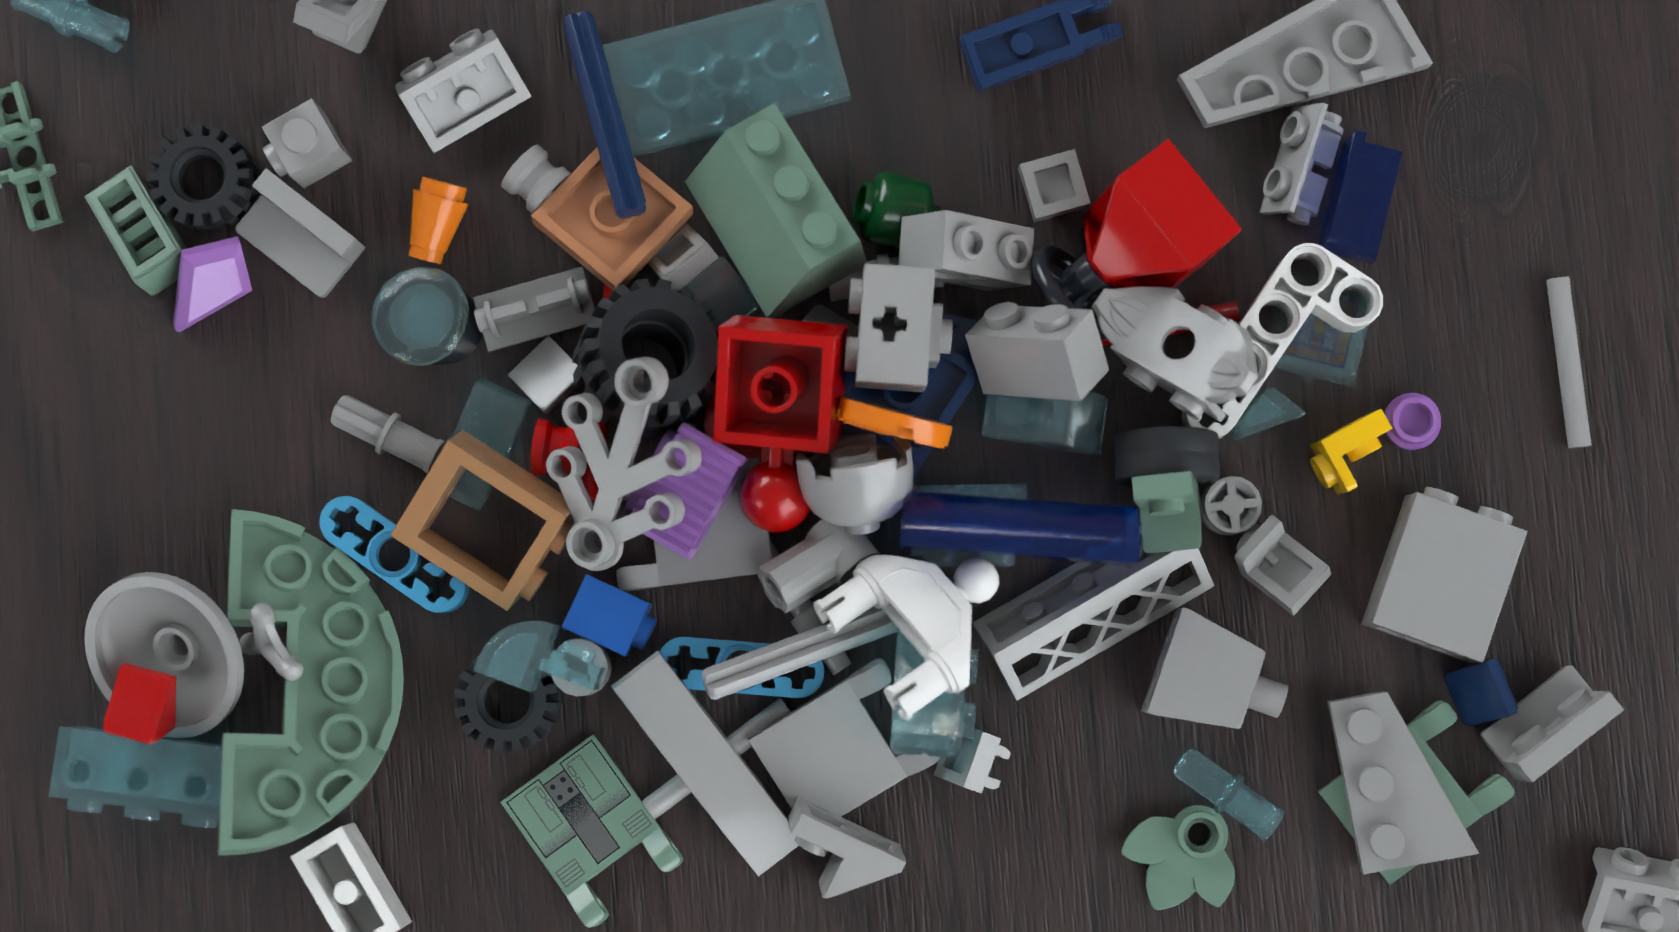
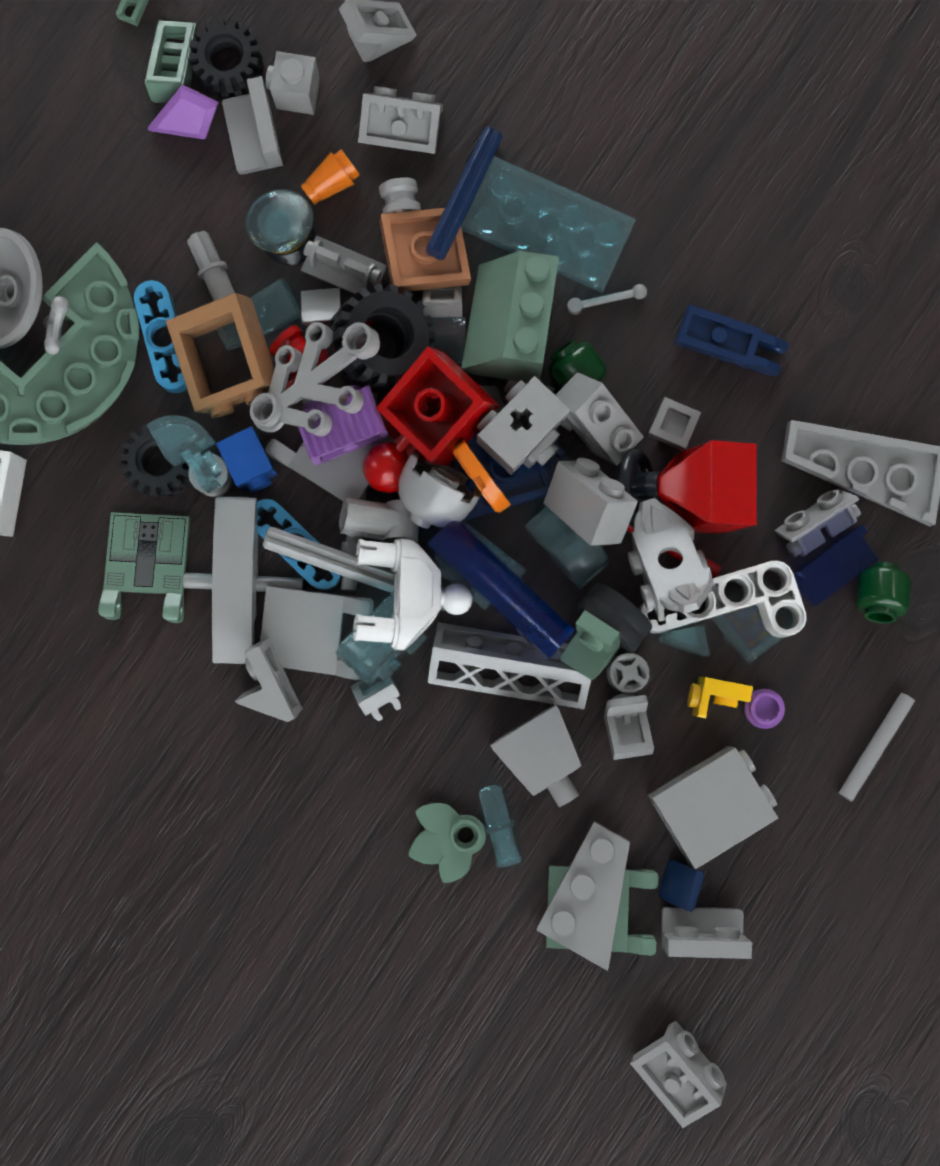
camera: 35 degrees right, 0 degrees up
(832, 138) = (575, 305): none -> light grey hinge
(1437, 186) = (883, 593): none -> dark green head

